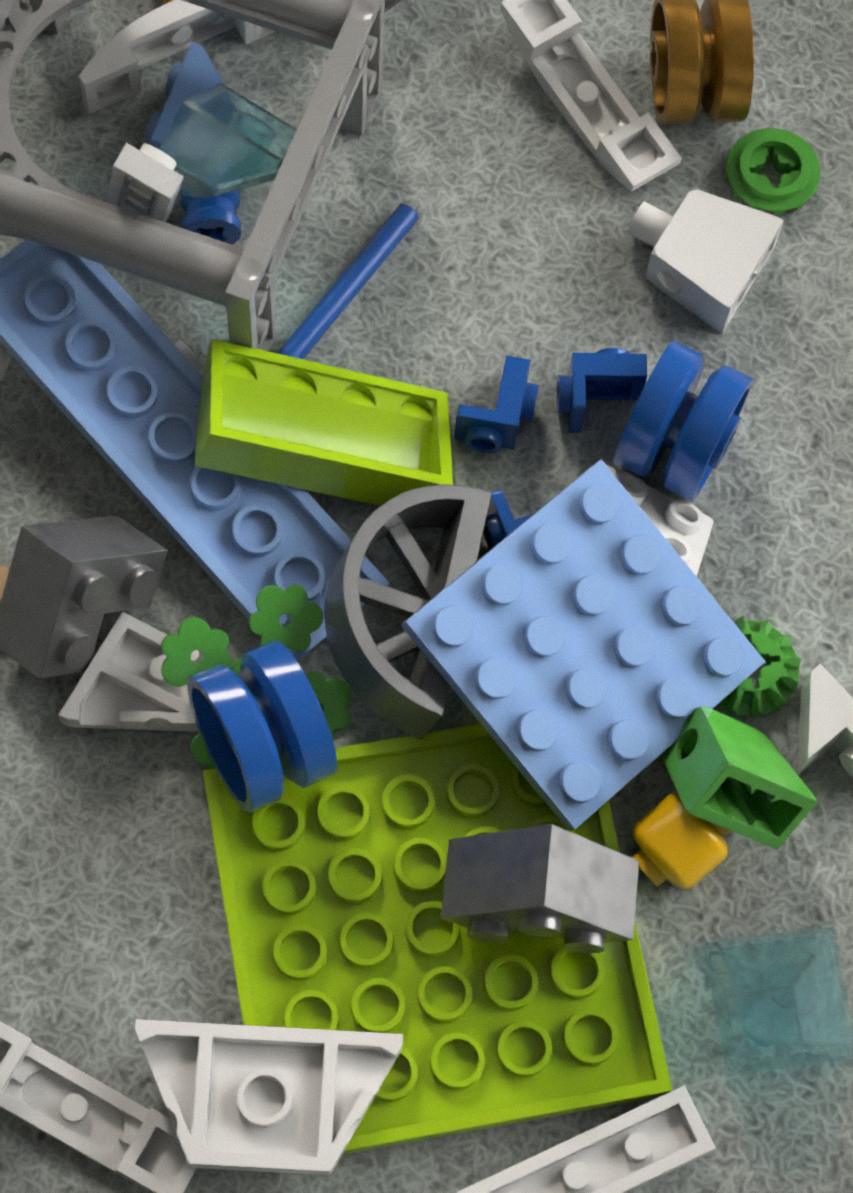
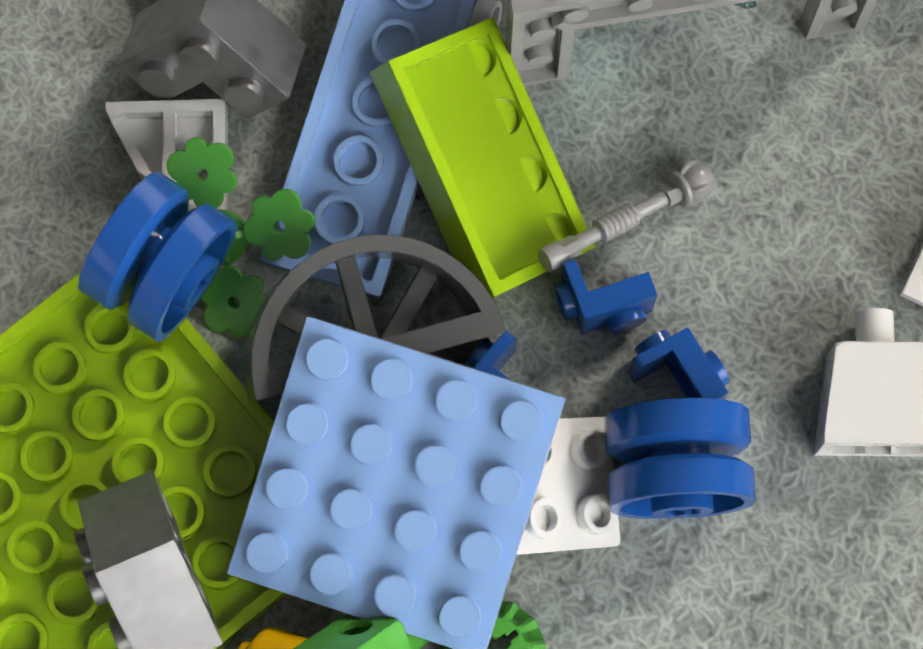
camera: 65 degrees right, 5 degrees up
(350, 282) = (642, 108): blue bar -> none
(438, 297) = (684, 187): none -> light grey piece

